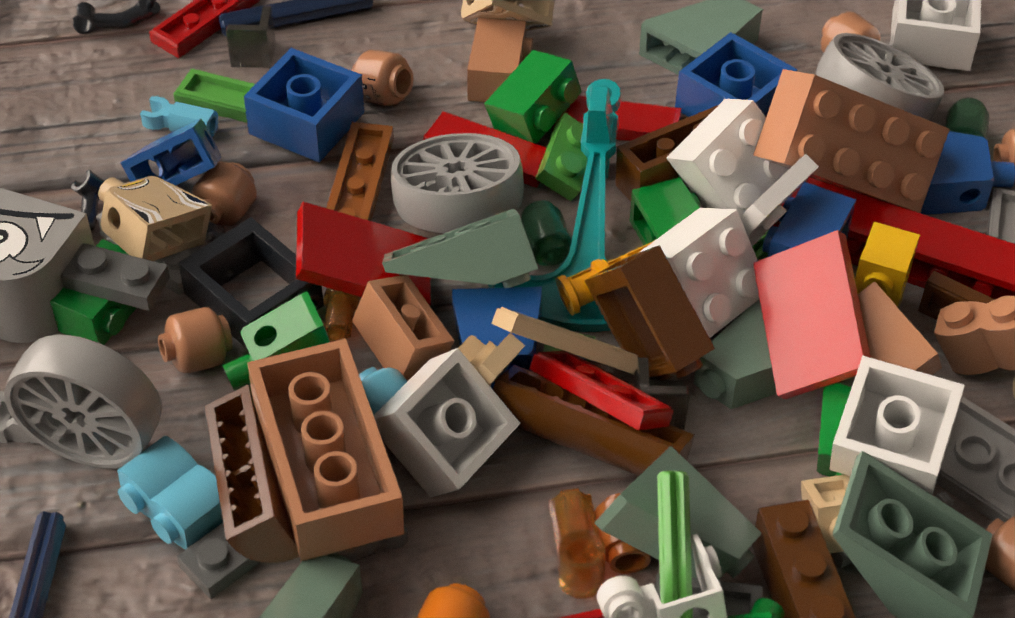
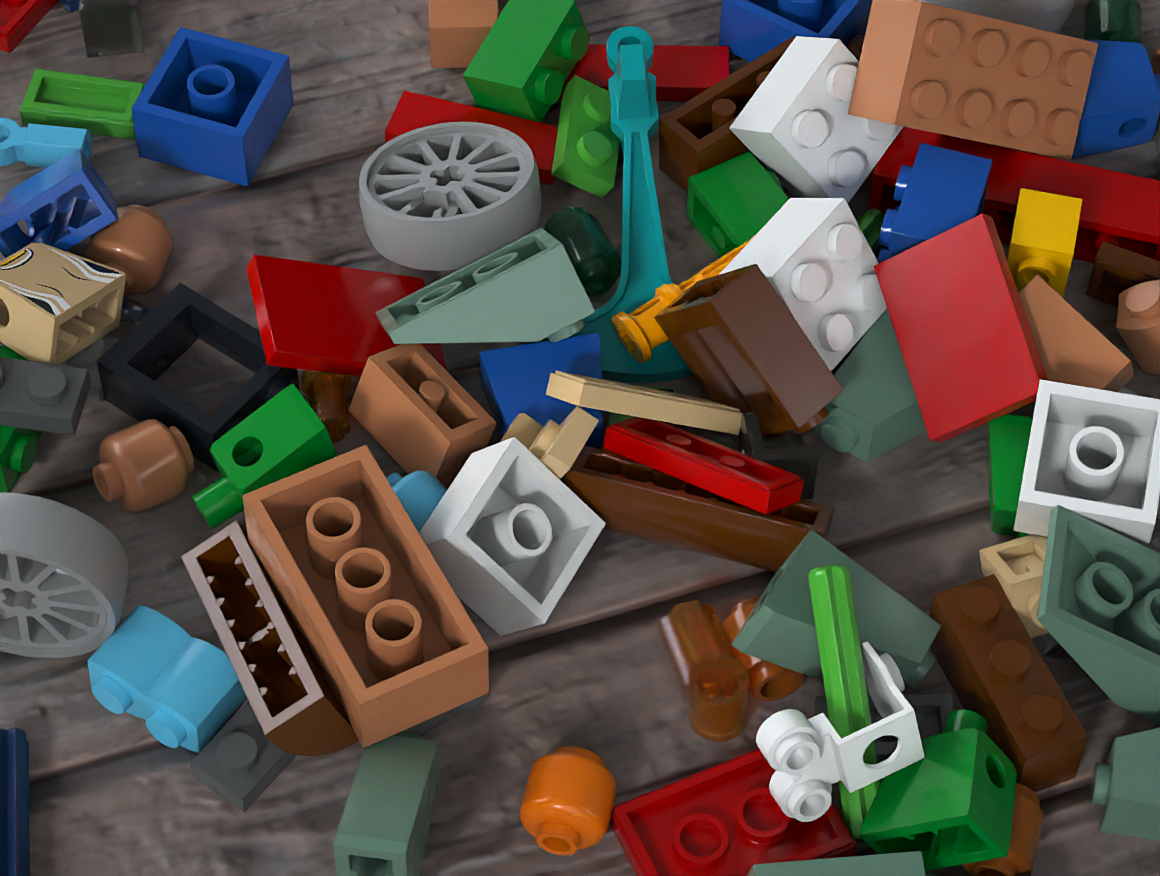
camera: 10 degrees left, 5 degrees up
(361, 170) = (310, 192): dark orange plate -> none
(384, 77) = (316, 48): nougat head -> none
(768, 206) = (881, 188): white wing -> none

